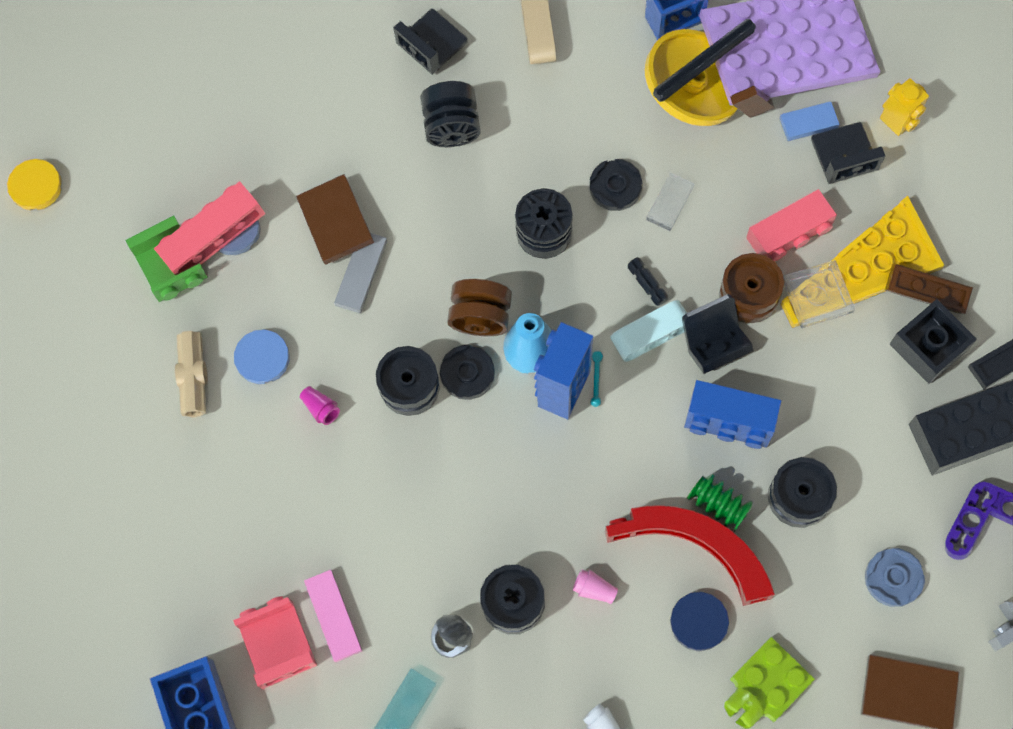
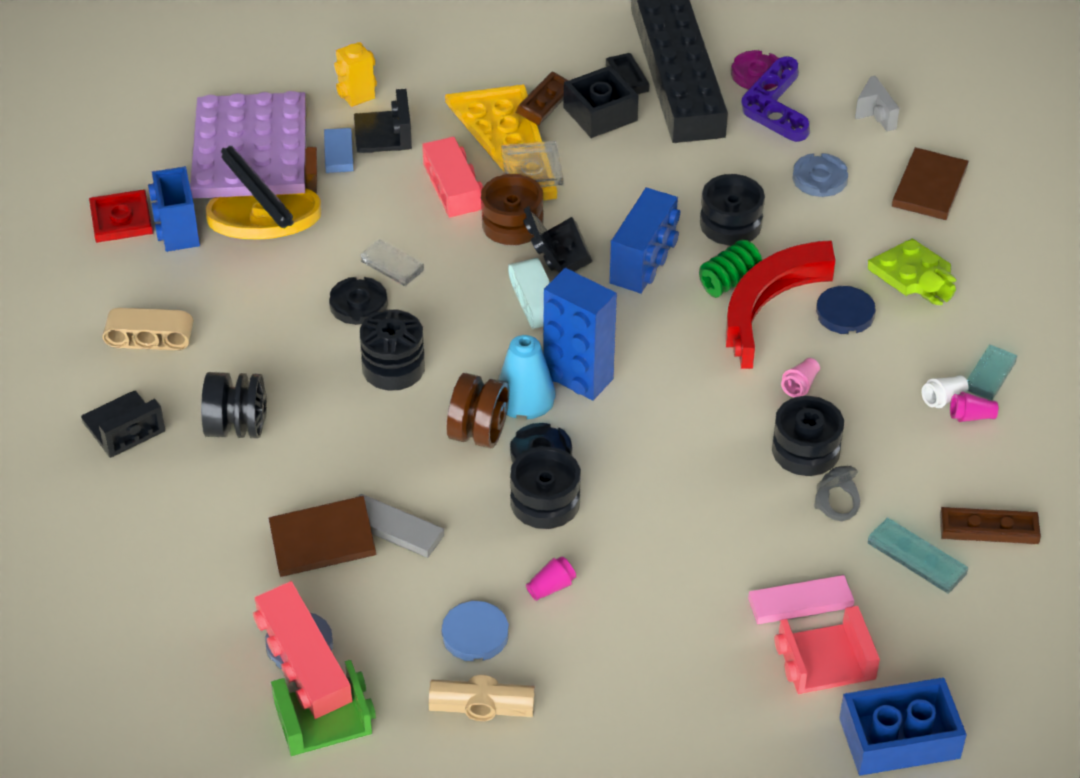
camera: 85 degrees left, 25 degrees down
(647, 281) = (477, 291): black axle -> none

